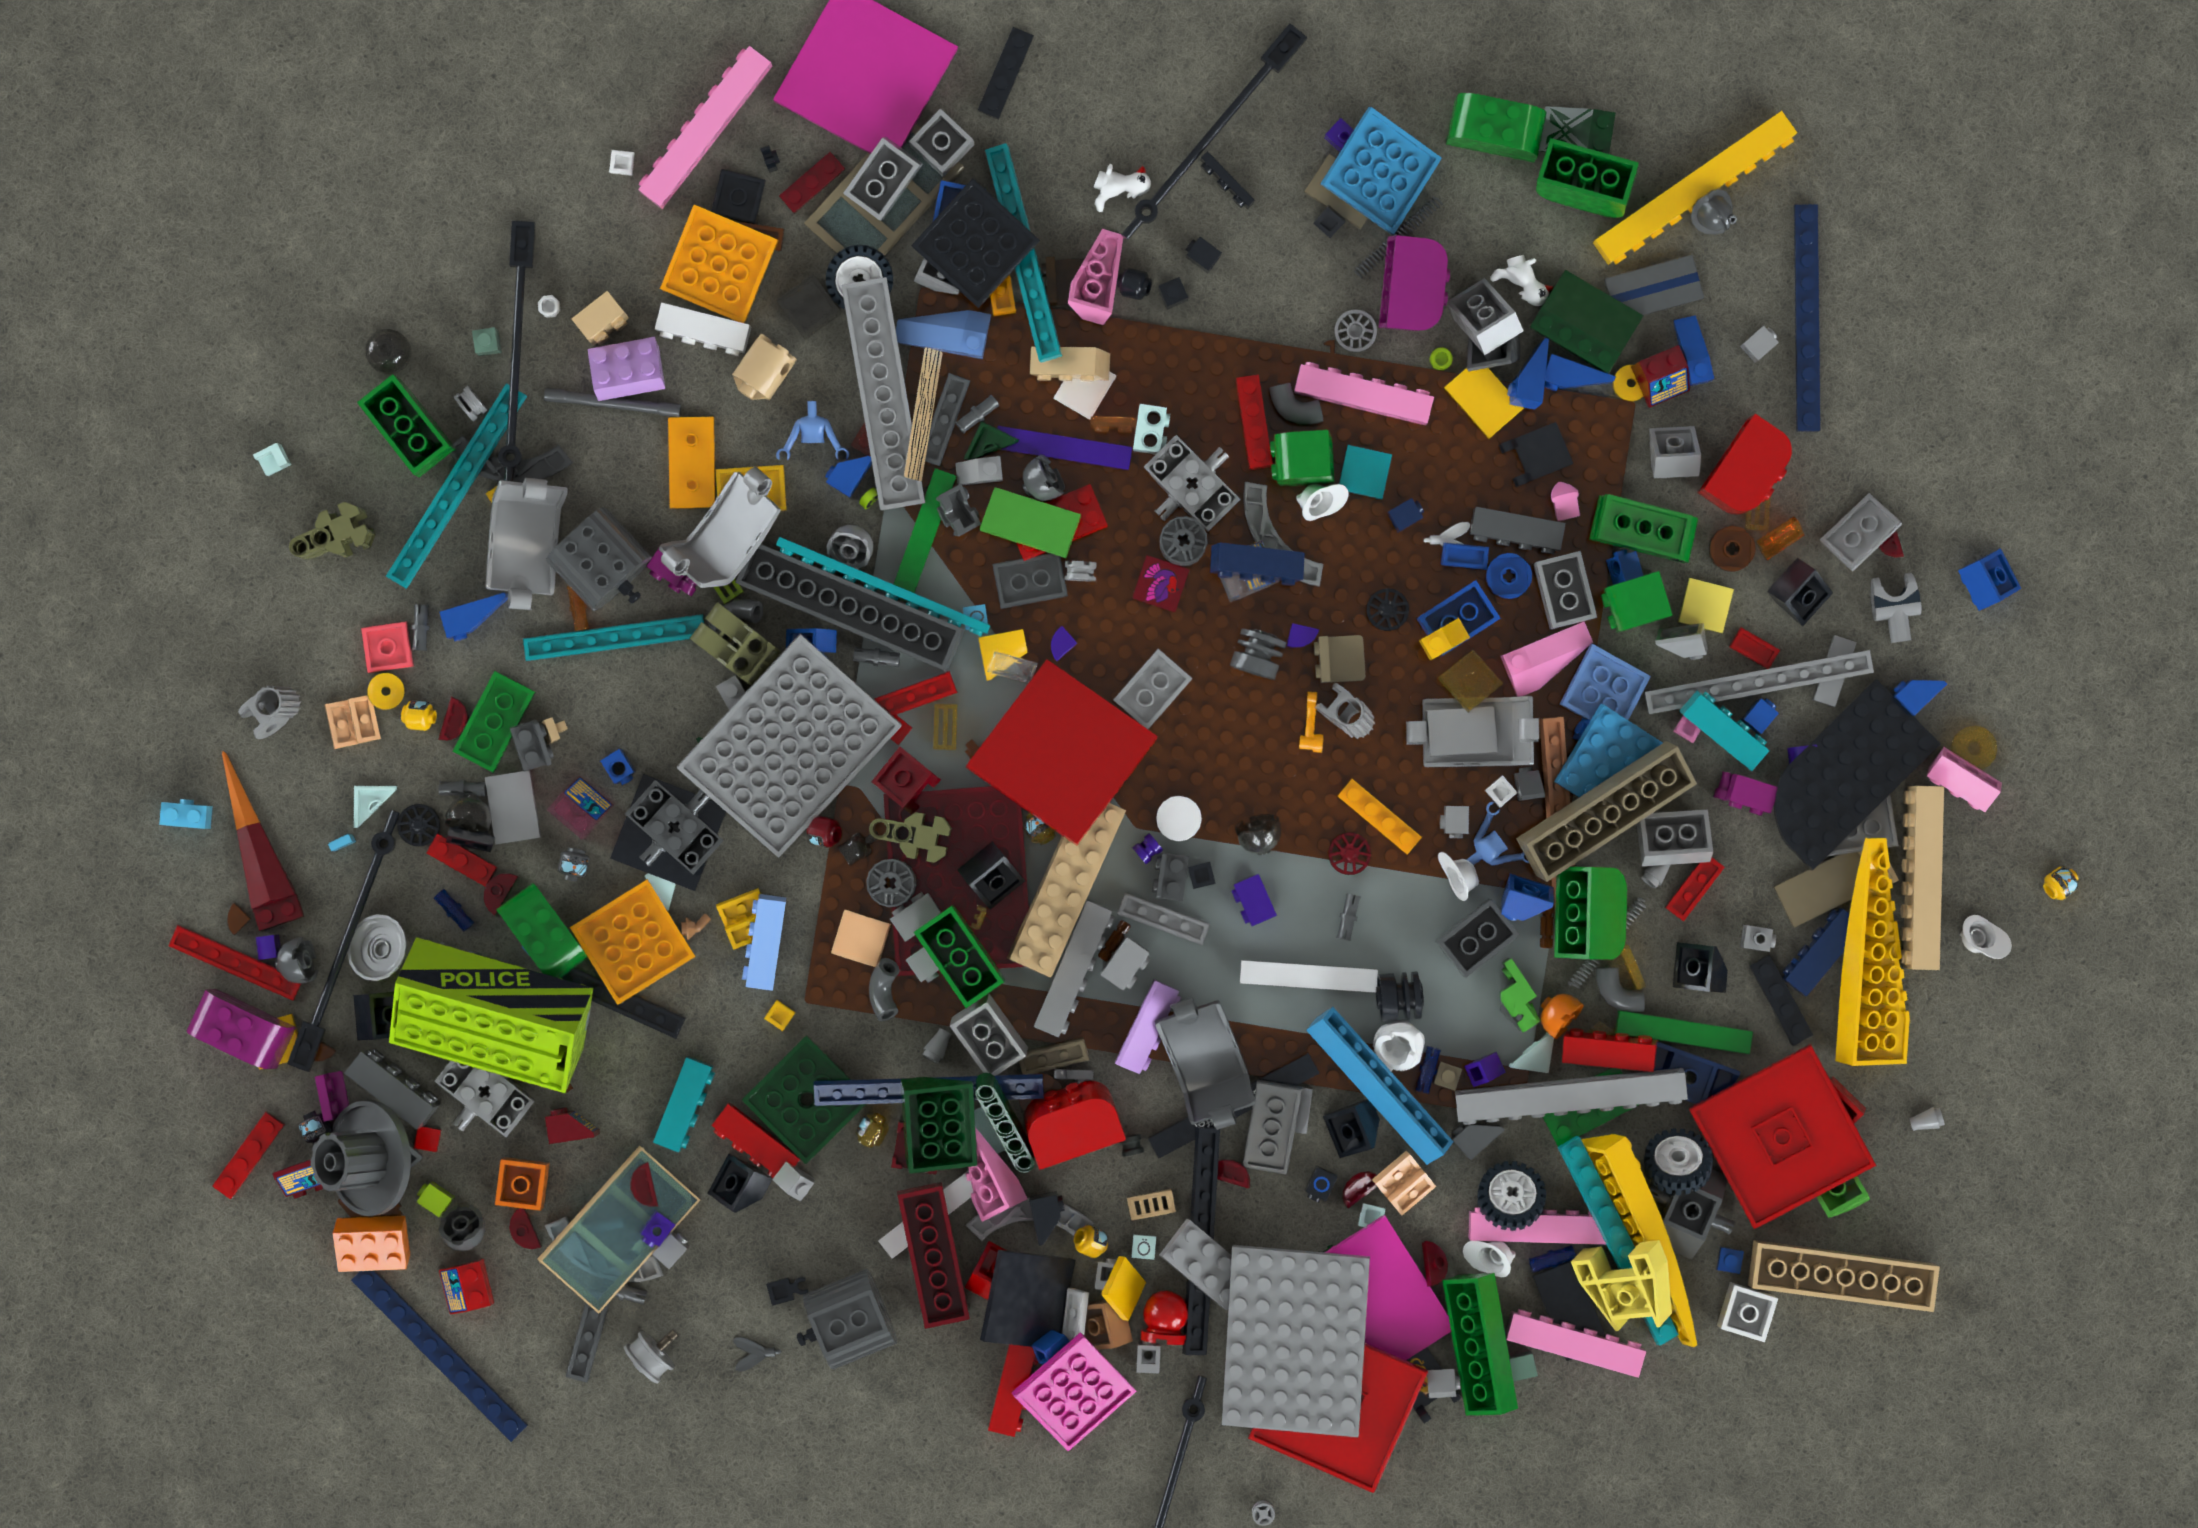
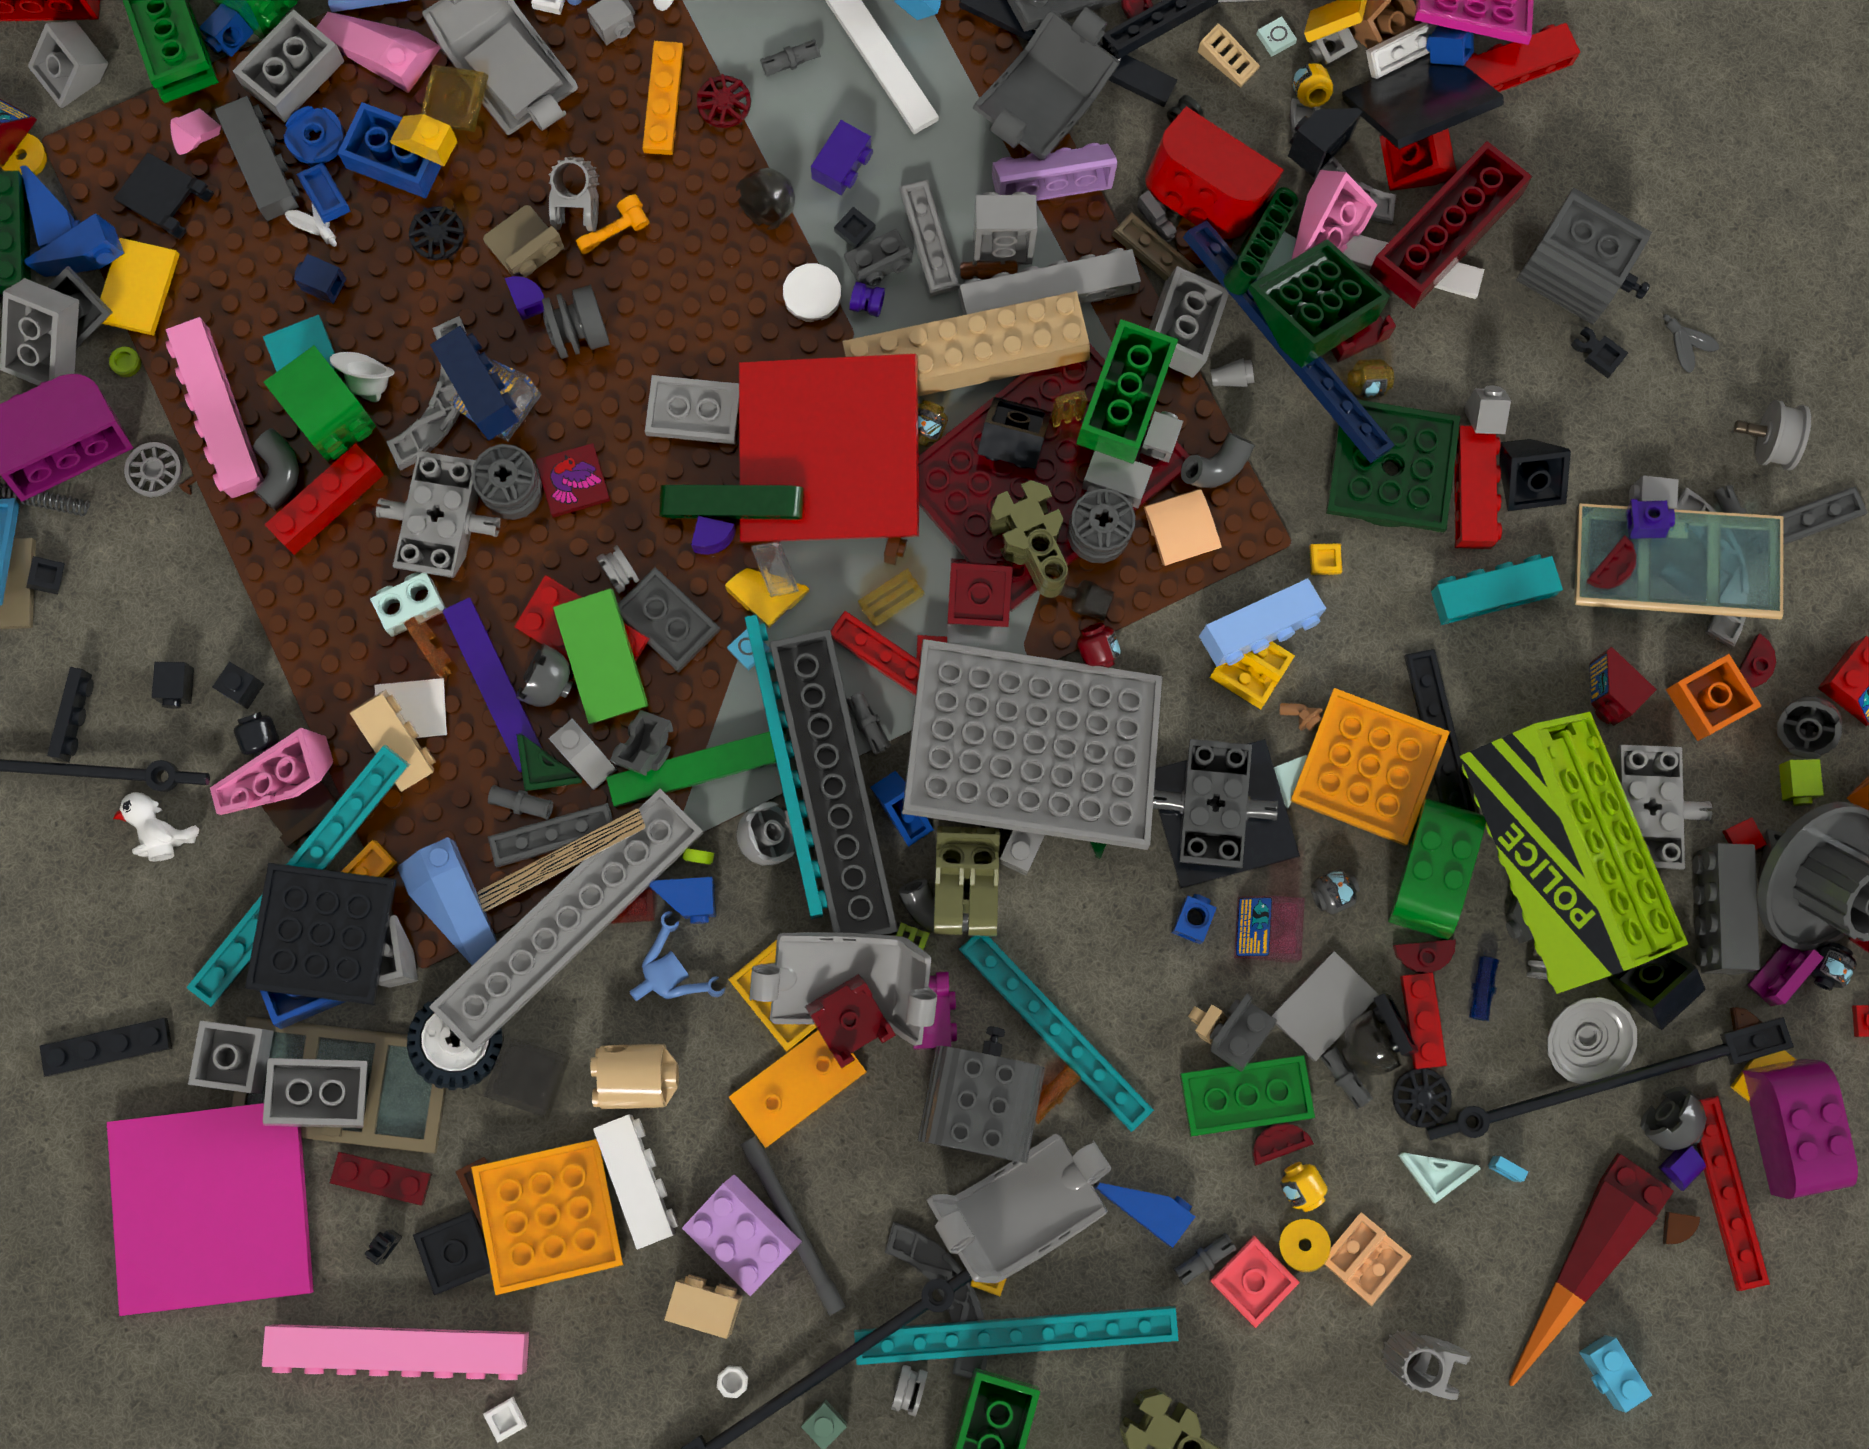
camera: 130 degrees left, 10 degrees down
(705, 517) = (849, 1019): none -> dark red panel
(1072, 669) = (731, 501): none -> dark green beam

